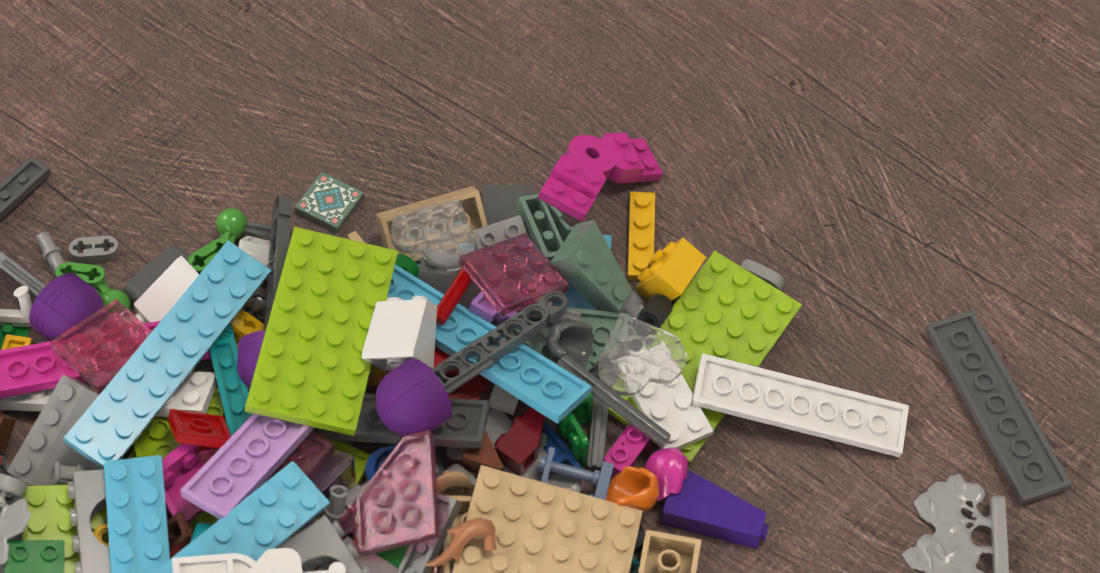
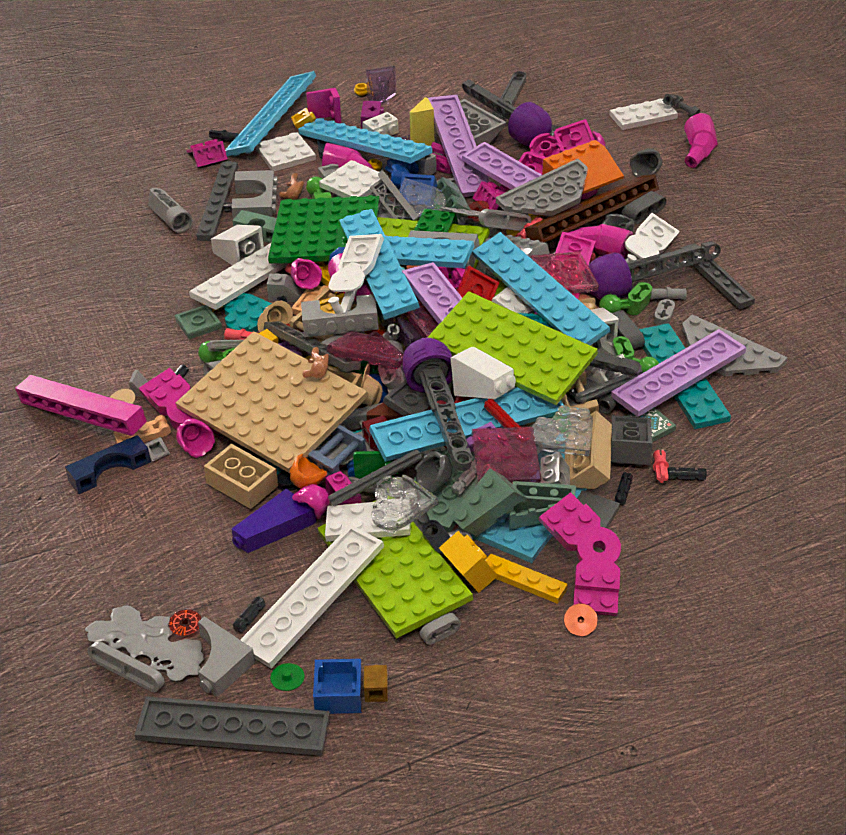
camera: 120 degrees right, 15 degrees down
(146, 167) = (754, 360): none -> light grey plate
(228, 186) = (697, 401): none -> teal plate
(229, 180) = (678, 372): none -> lavender plate
(371, 194) = (631, 440): none -> dark grey slope
(397, 141) = (687, 473): none -> black axle
(401, 165) = (660, 466): none -> coral axle
(437, 191) = (623, 488): none -> black axle
(671, 165) = (580, 620): none -> piece
(852, 468) = (249, 614): none -> black axle
(865, 302) = (375, 683): none -> pearl gold brick
(893, 331) = (338, 685): none -> blue container
(902, 391) = (287, 677): none -> green piece
(904, 525) = (184, 622): none -> clear red piece
(928, 452) = (227, 658): none -> light grey arch

